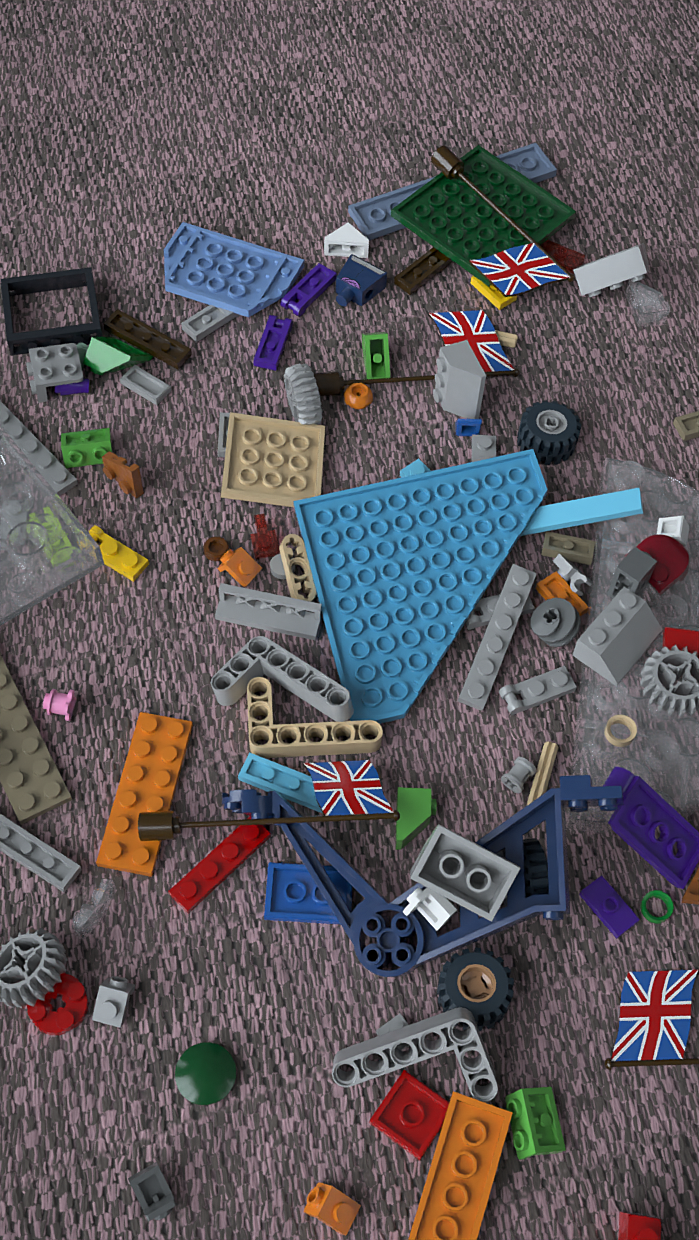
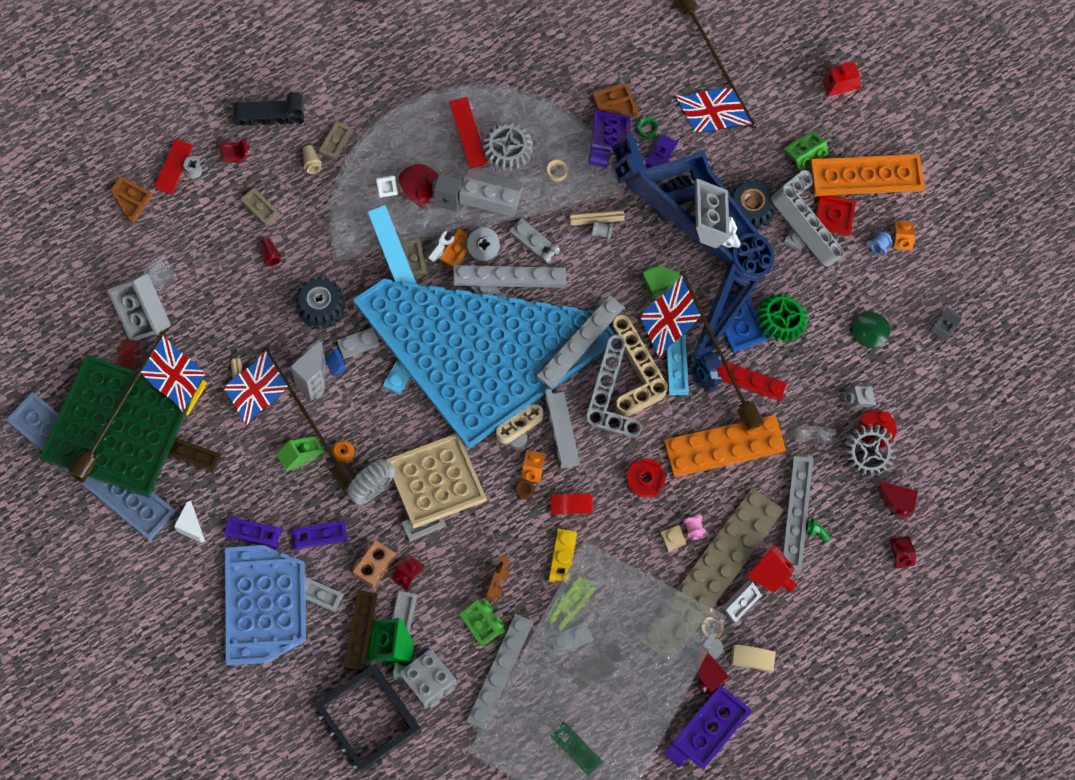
camera: 115 degrees left, 10 degrees up
(64, 677) = (673, 538): none -> tan plate
(159, 692) = (639, 469): none -> red plate
(167, 585) = (571, 504): none -> red slope
(186, 401) = (407, 571): none -> dark red bracket
(211, 373) = (378, 566): none -> nougat brick
(258, 937) = (777, 322): none -> green gear
(264, 541) = (503, 459): clear red plate -> none
(332, 1158) = (880, 243): none -> medium blue brick
(359, 281) = (230, 497): dark blue torso -> none
(368, 675) = (580, 342): none -> light grey plate
(635, 412) = (270, 254): none -> dark red cone

